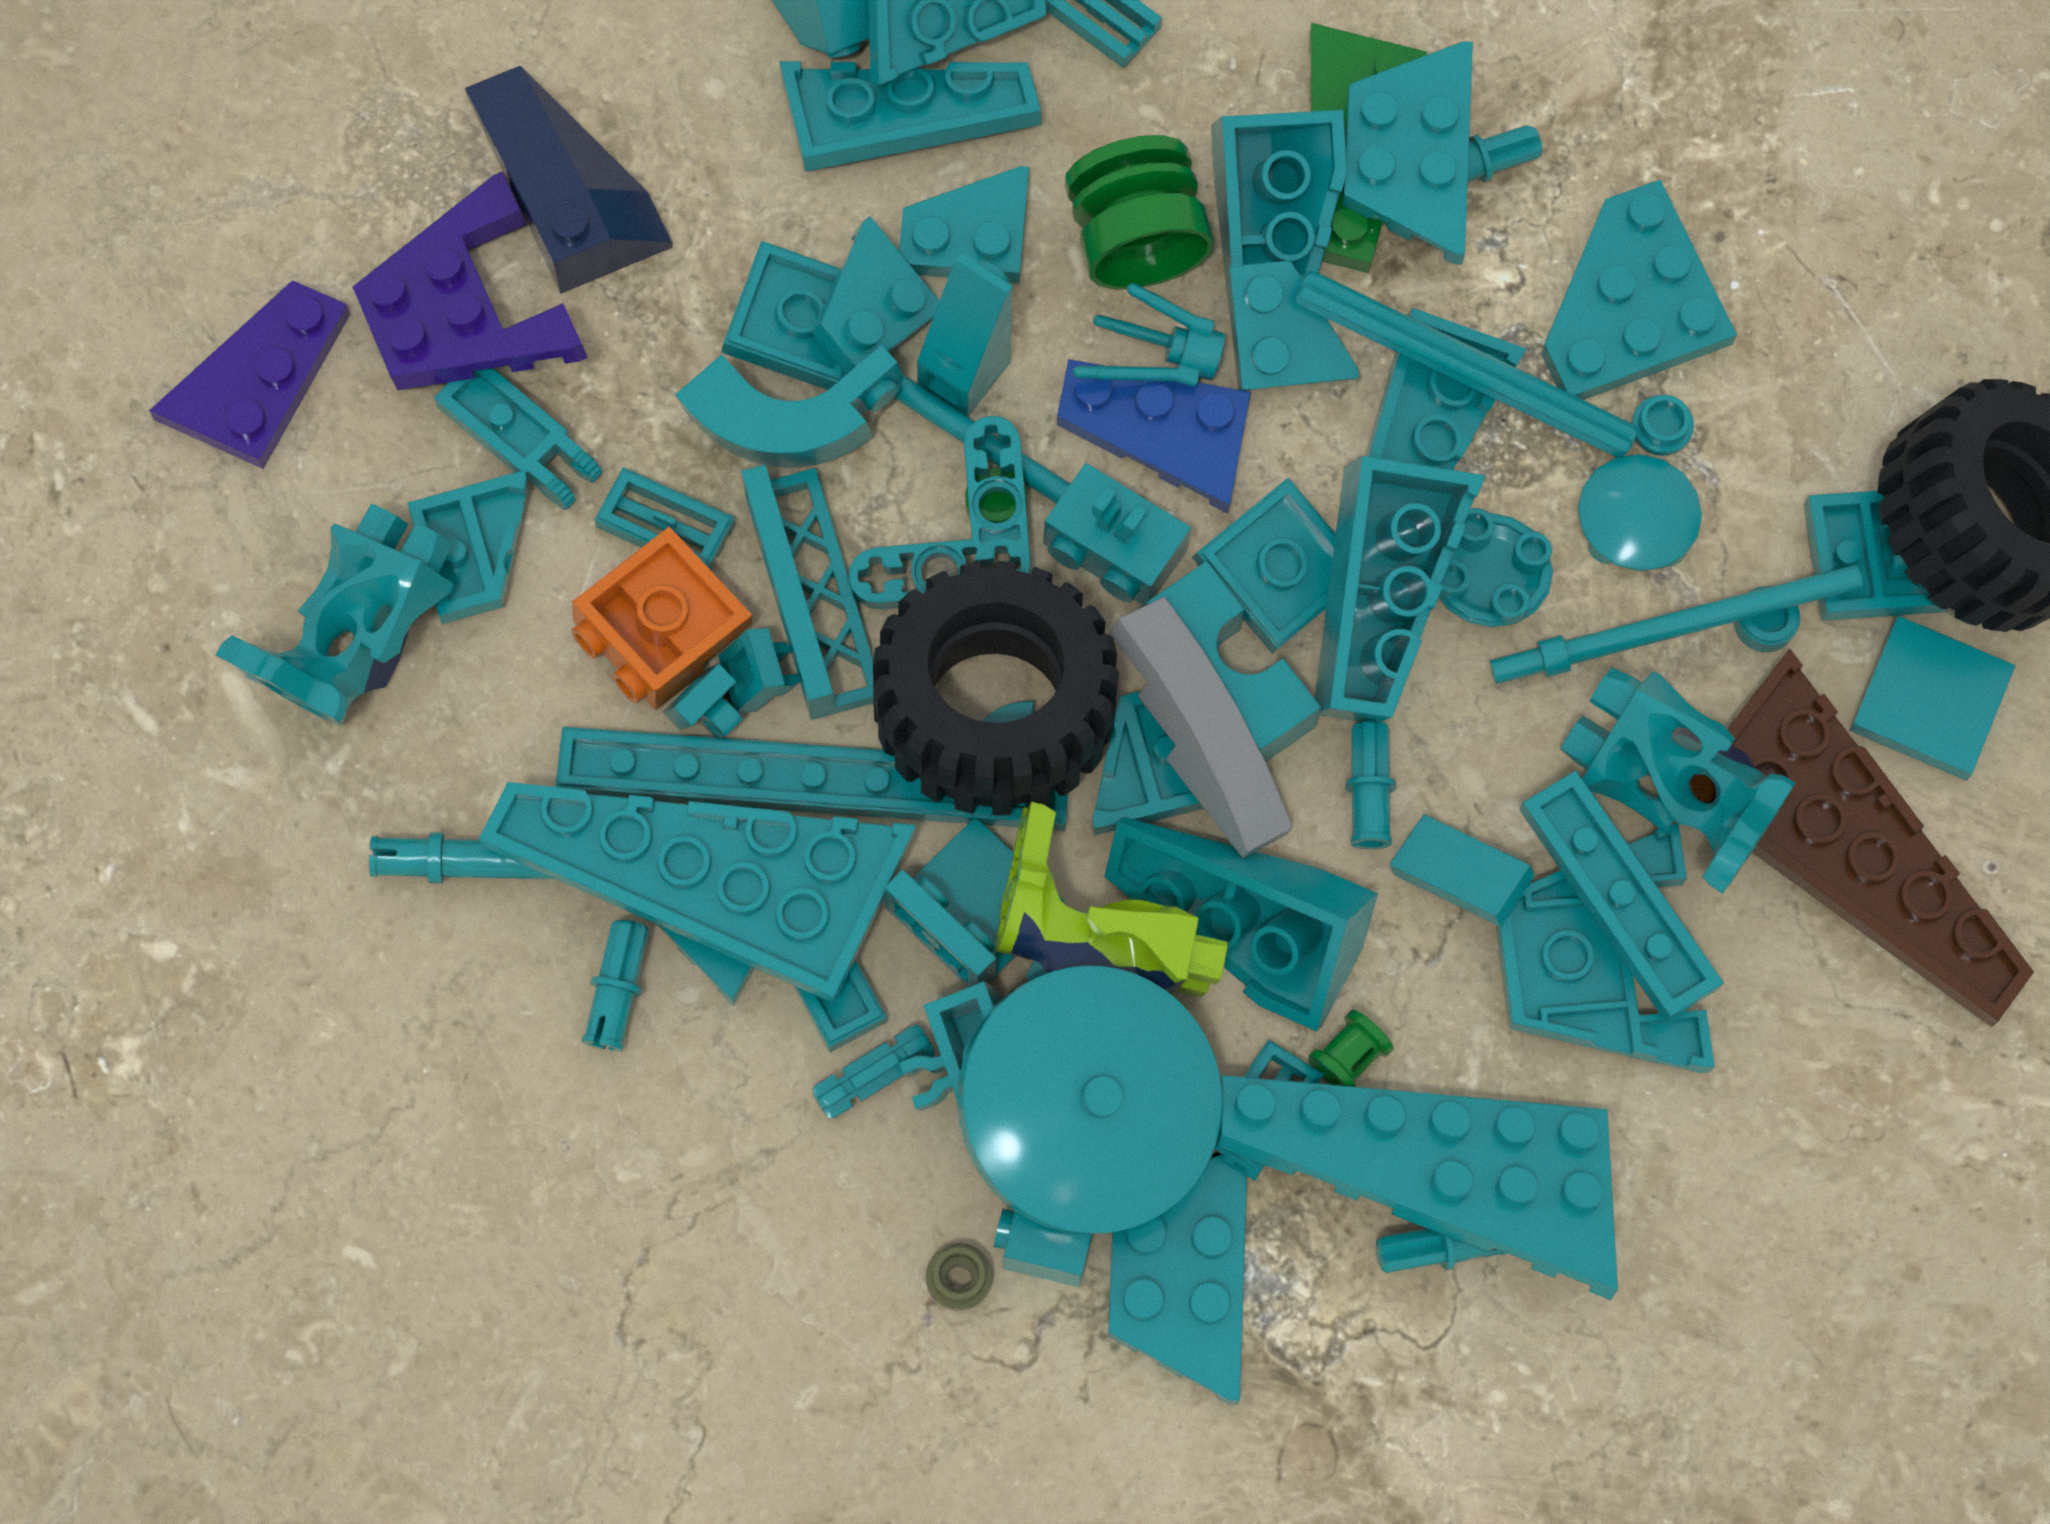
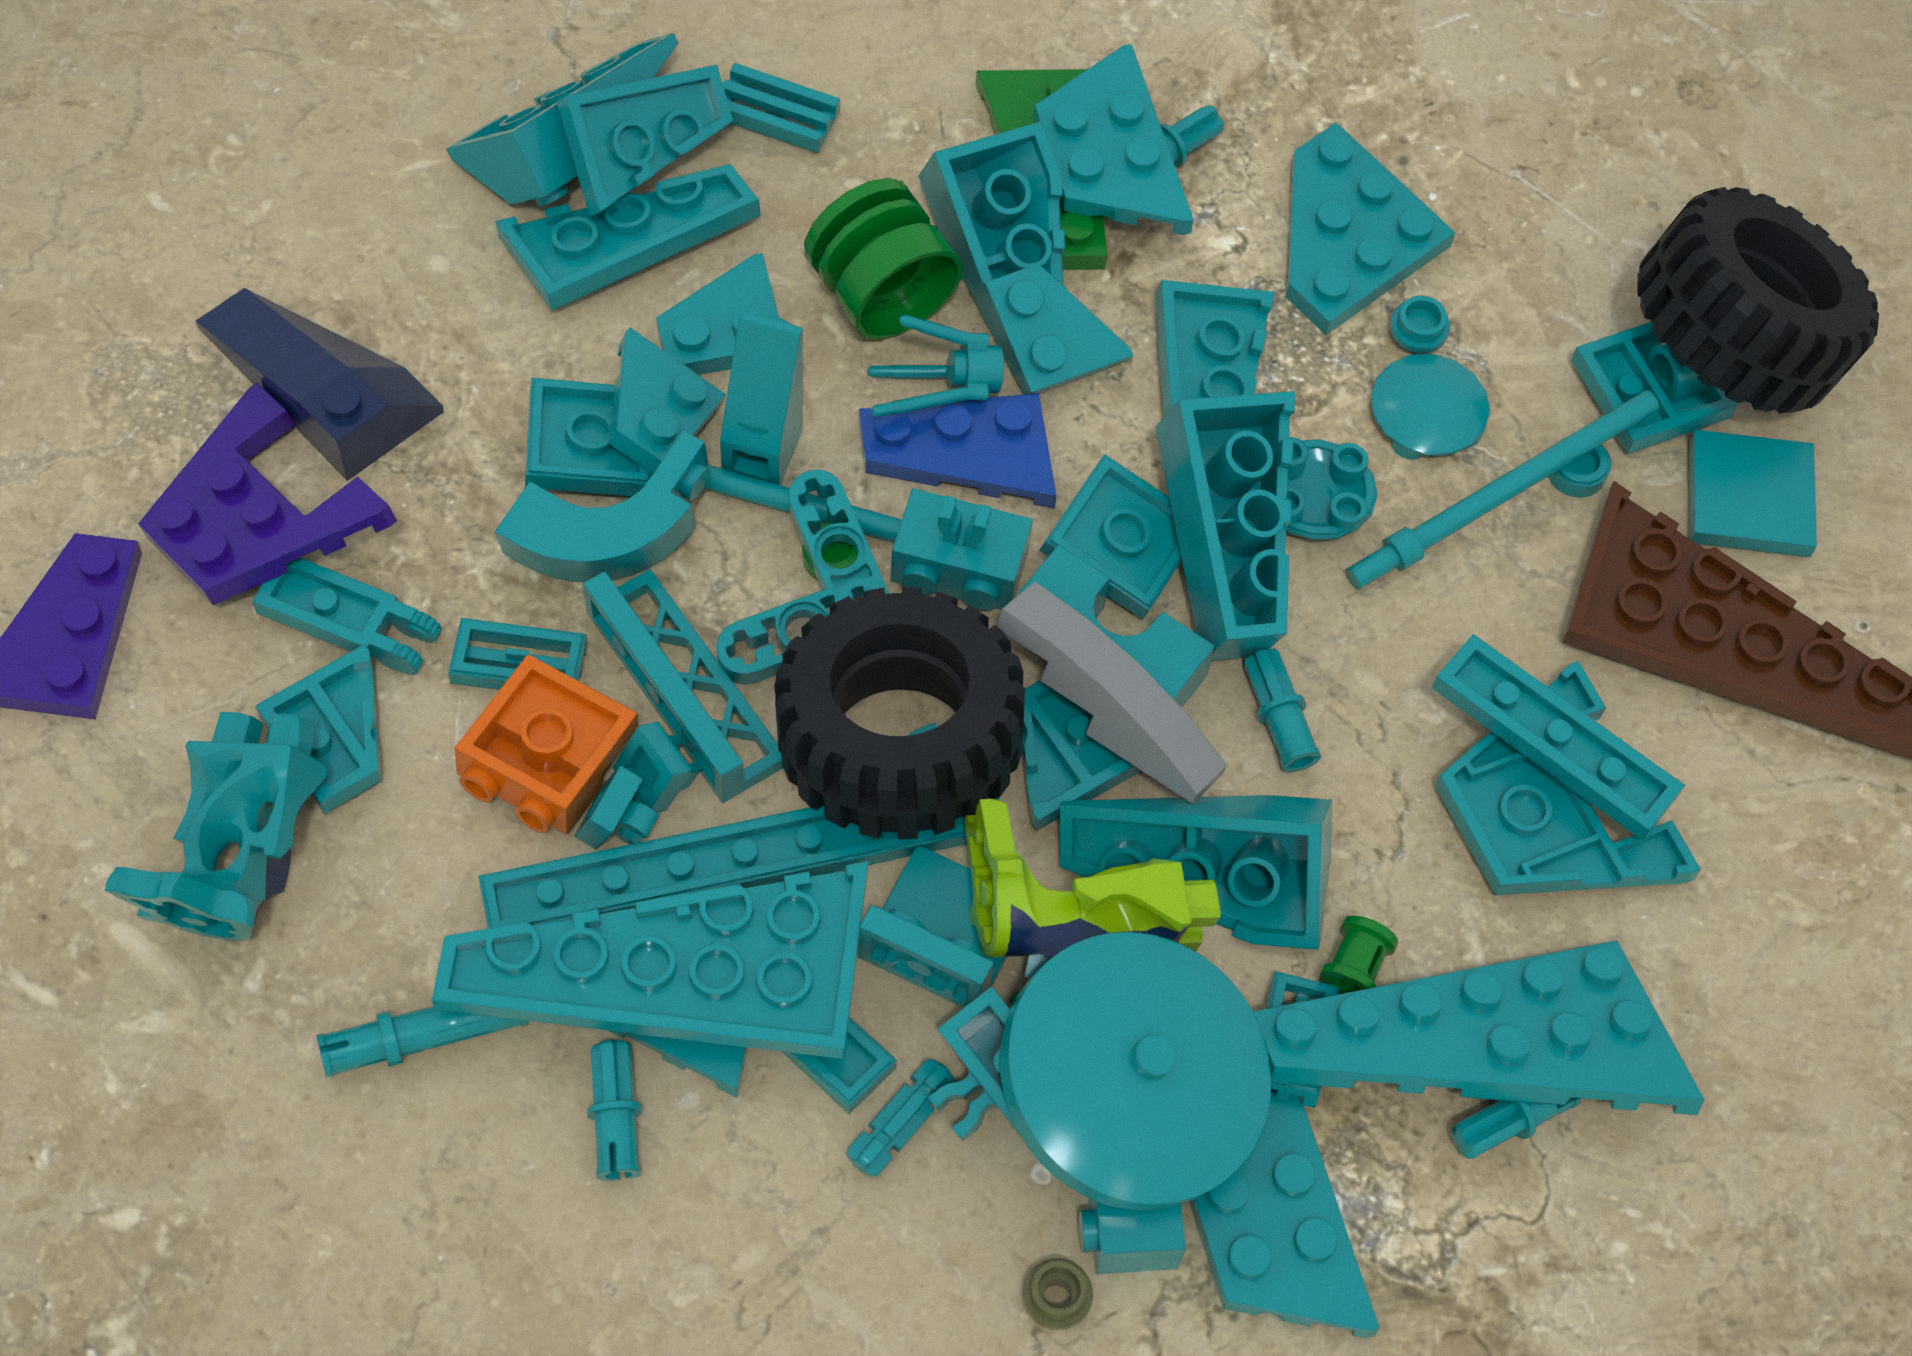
camera: 20 degrees left, 10 degrees down
(1462, 870) = (1398, 759): teal tile -> none
(1465, 364) = (1227, 313): teal axle -> none
(1670, 743) = (1640, 619): teal hips -> none

